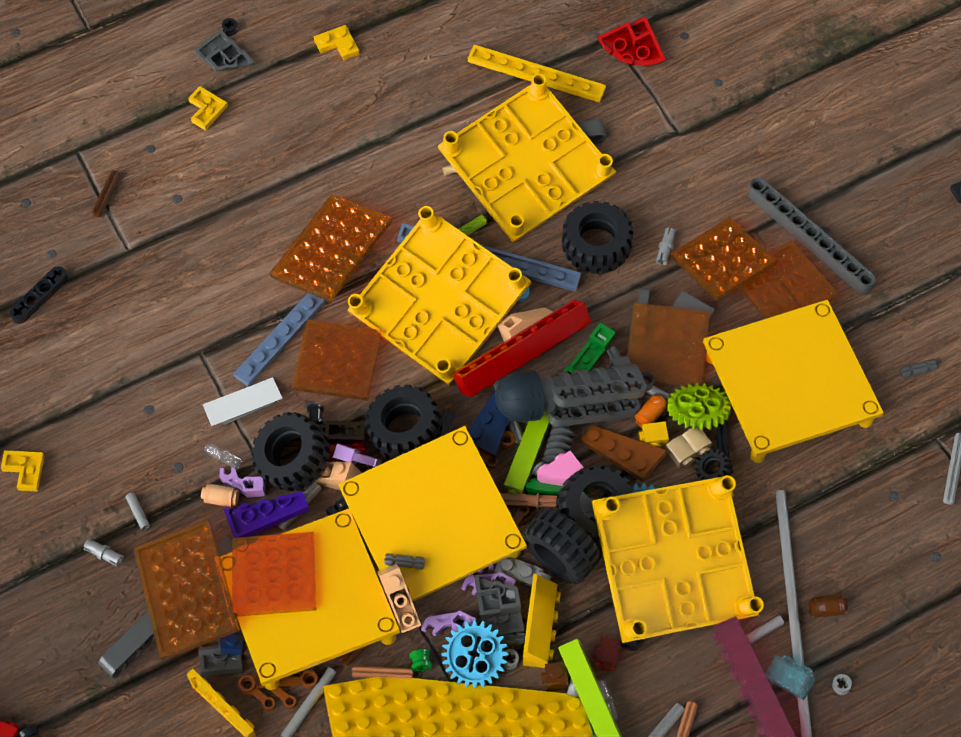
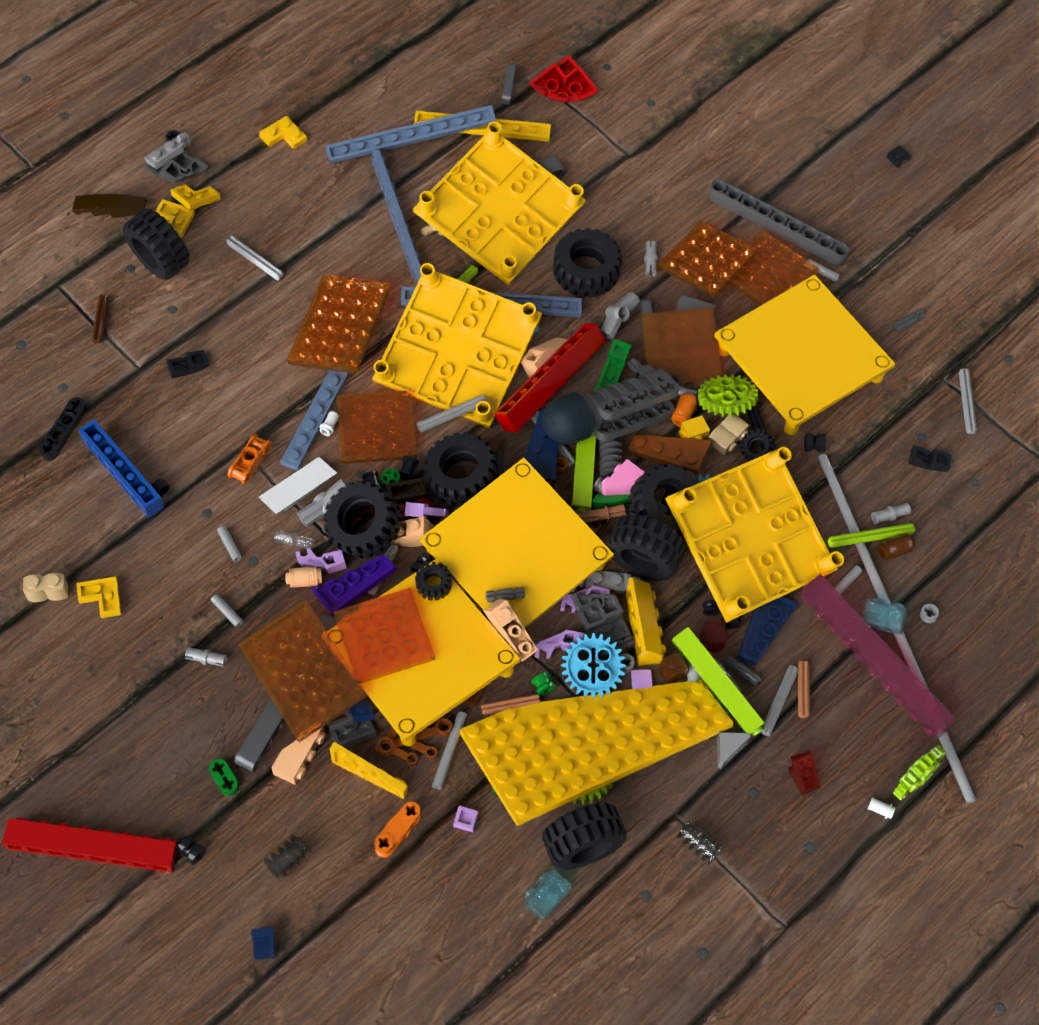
camera: 20 degrees left, 0 degrees up
(79, 347) = (121, 468): none -> blue brick
(89, 674) = (219, 780): none -> green beam
(110, 374) = (161, 487): none -> black bush
(152, 82) = (113, 204): none -> dark brown slope
(157, 673) = (293, 759): none -> light nougat slope
(160, 445) = (229, 543): none -> light grey piece
(171, 257) = (191, 363): none -> black slope
(175, 131) = (156, 244): none -> black tyre
(195, 374) = (244, 469): none -> orange piece
(219, 39) = (168, 151): none -> light grey hinge
(231, 92) = (195, 199): none -> yellow plate
(247, 432) = (317, 508): none -> light grey piece
(271, 163) = (255, 258): none -> light grey axle
(289, 349) = (327, 427): none -> white pin
(333, 412) = (389, 475): none -> green wheel
(338, 541) = (433, 591): none -> black tyre
(354, 408) = (408, 467): none -> black bush
(412, 363) = (449, 414): none -> light grey axle
(423, 148) = (397, 215): none -> sand blue plate
(461, 68) = (410, 134): none -> sand blue plate
(520, 679) = (641, 679): none -> lavender tile
(576, 35) = (509, 84): none -> dark grey beam
(612, 624) = (710, 608): none -> black bush
(613, 297) = (617, 314): none -> light grey piece
(627, 696) = (742, 670): none -> dark grey axle
(662, 657) = (764, 627): none -> dark blue wing
(780, 478) = (814, 442): none -> black wheel
(804, 587) = (870, 535): none -> lime axle
(833, 569) = (890, 513): none -> light grey pin
(844, 297) = (830, 274): none -> light grey piece
(894, 522) = (931, 460): none -> black slope

